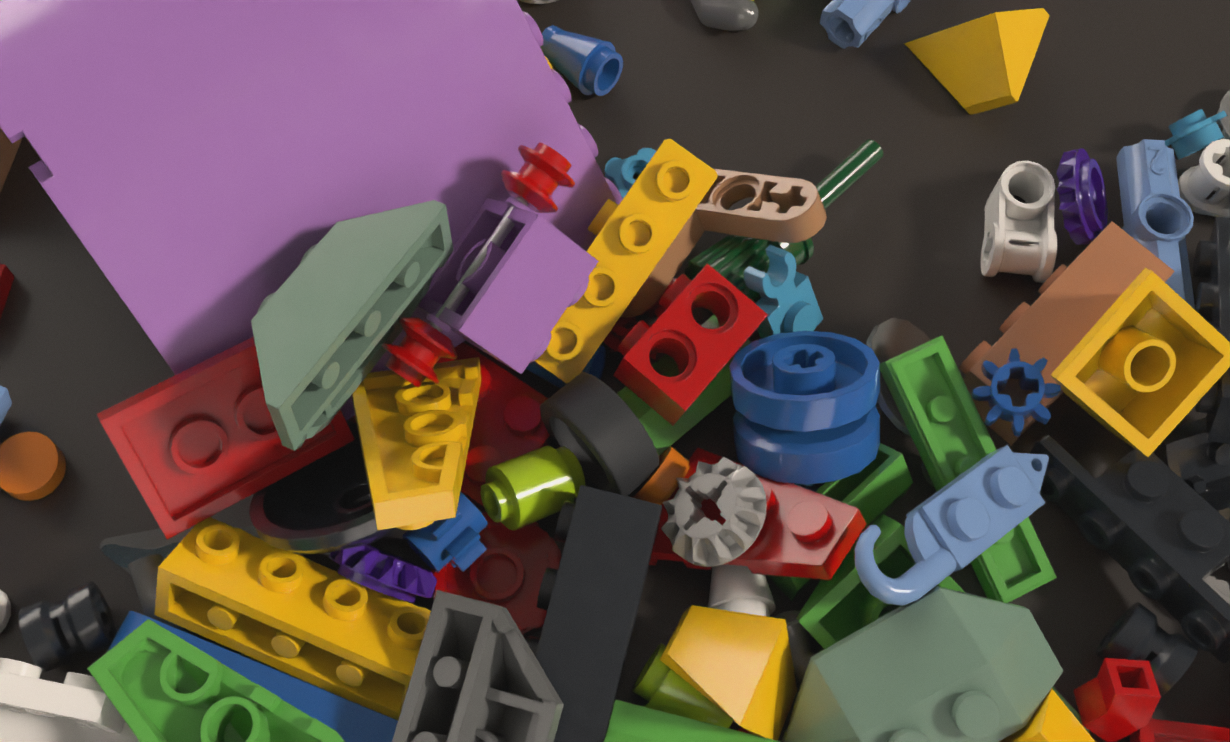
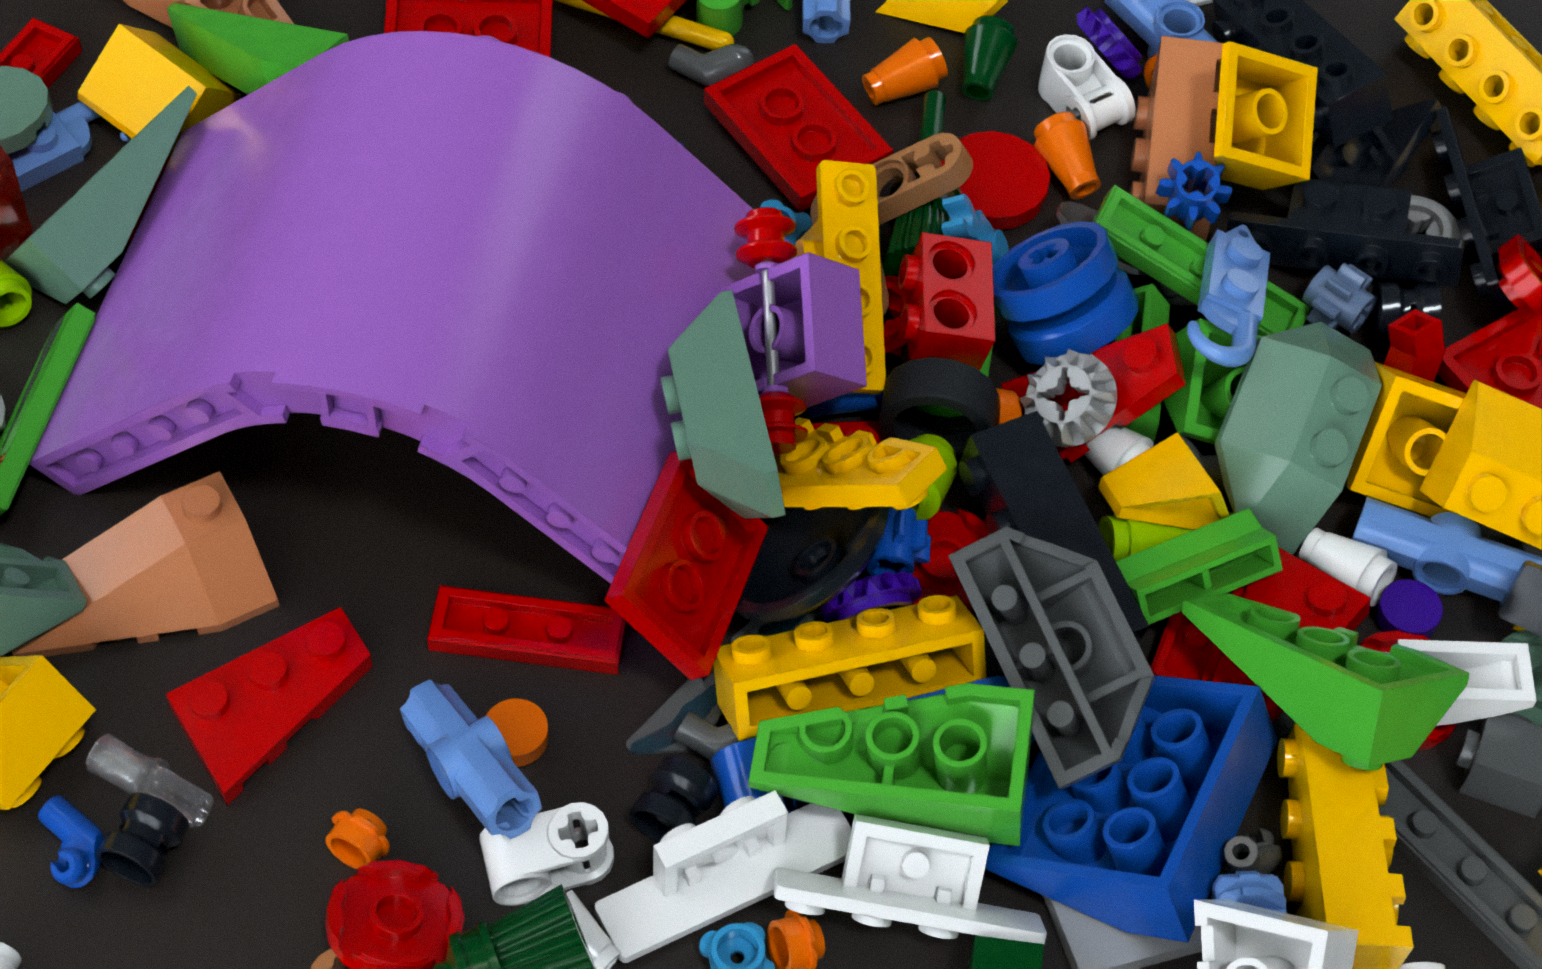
camera: 40 degrees left, 10 degrees down
(100, 356) = (527, 630): none -> red tile
(738, 96) = (792, 121): none -> red plate
(868, 256) = (1006, 178): none -> red tile
(873, 110) = (906, 72): none -> orange cone
(952, 274) = (1068, 153): none -> orange cone
(960, 139) = (987, 53): none -> dark green cone
(1087, 591) = (1340, 298): none -> sand blue gear

